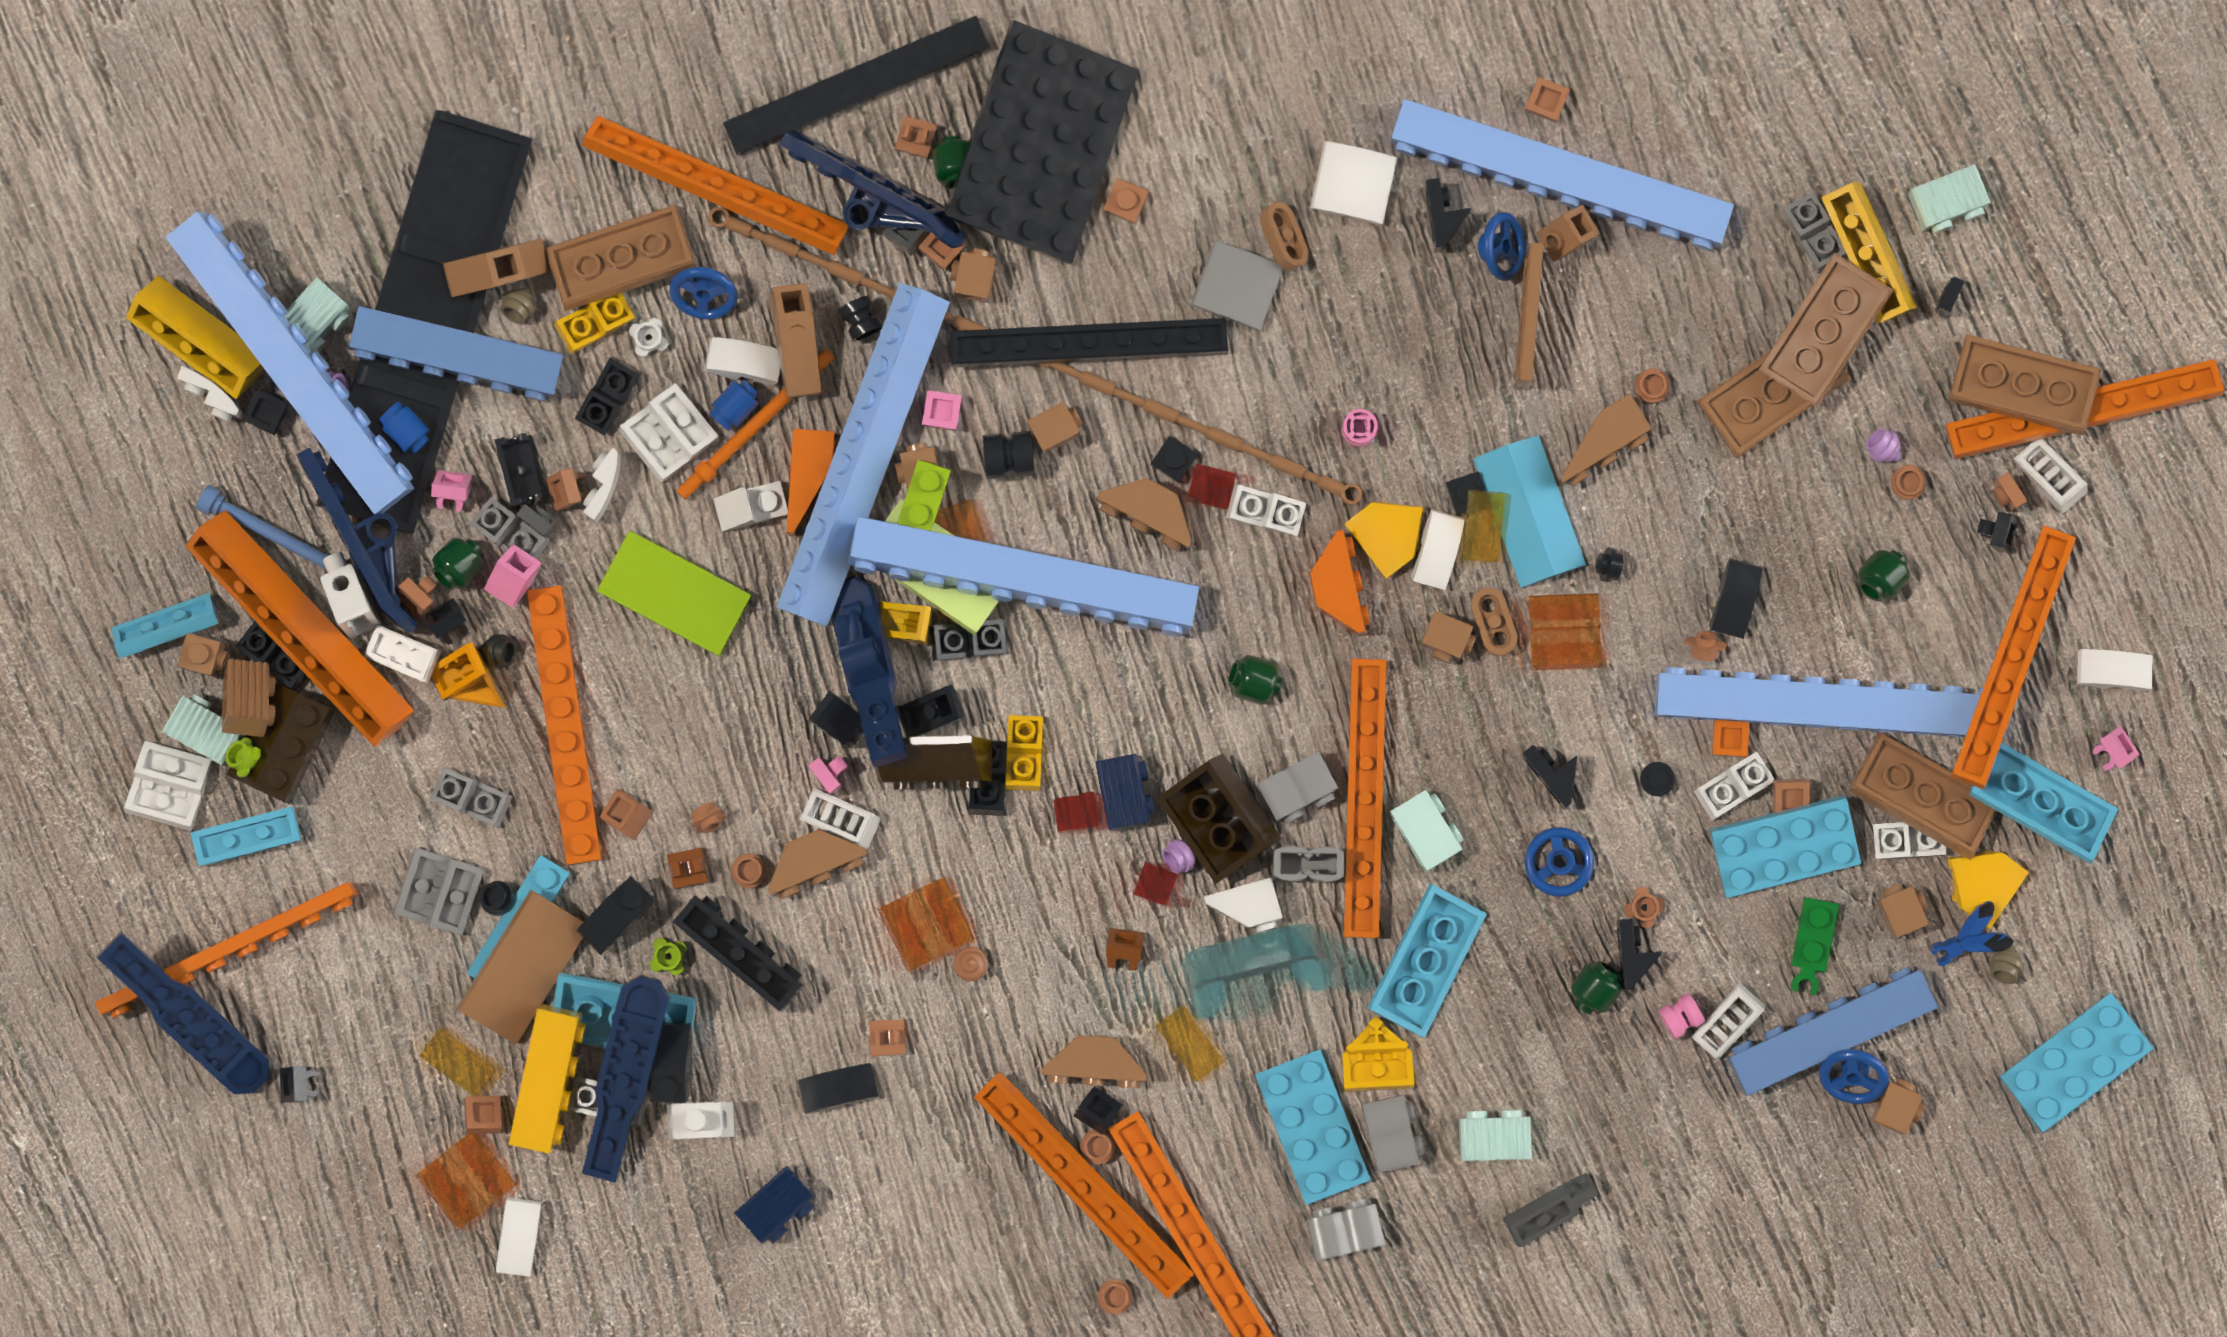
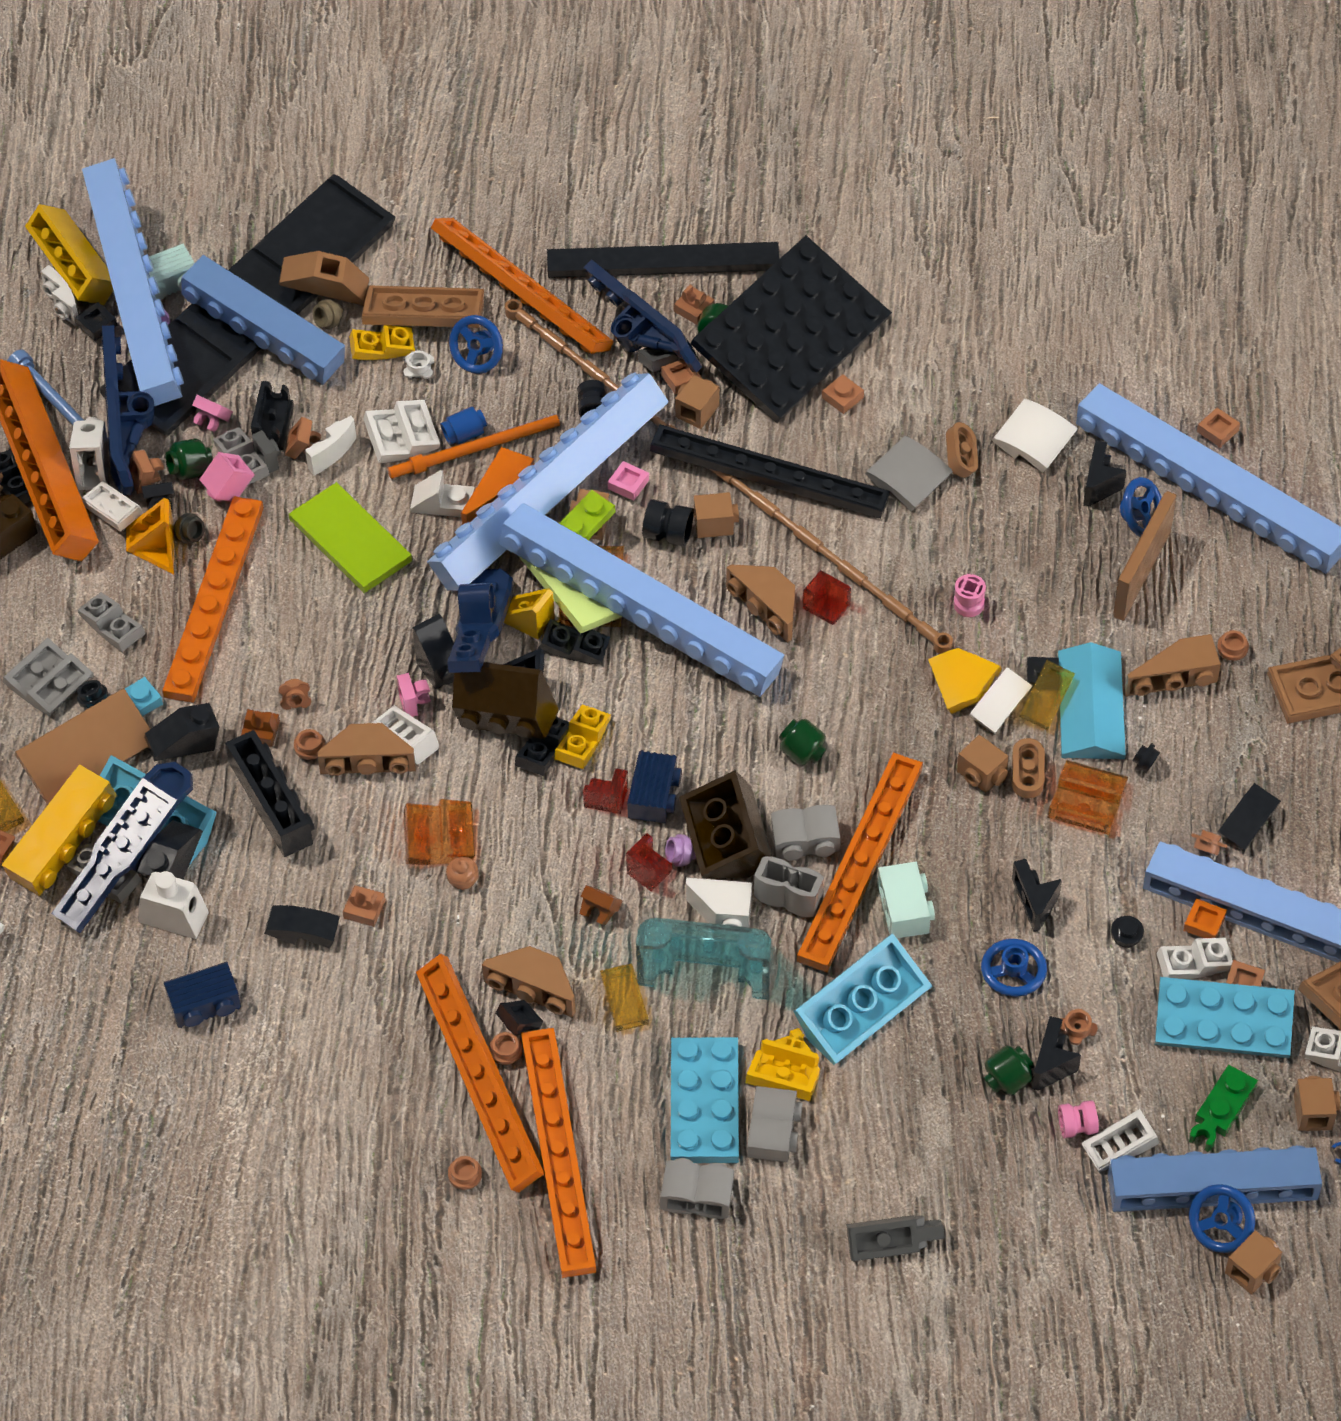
camera: 20 degrees right, 30 degrees down
(404, 428) = (196, 356): blue brick -> none
(608, 395) = (368, 394): black slope -> none
(626, 814) = (230, 675): nougat slope -> none
(659, 961) = (207, 777): lime plate -> none
(743, 359) = (486, 397): white slope -> none
(795, 339) = (533, 391): medium nougat slope -> none
(1174, 459) = (801, 572): black plate -> none
(1266, 510) = (860, 630): white slope -> none
(1337, 586) = (903, 697): orange slope -> none
(1495, 1137) = (867, 1159): light aqua brick -> none
(1568, 233) = (1200, 513): medium nougat brick -> none

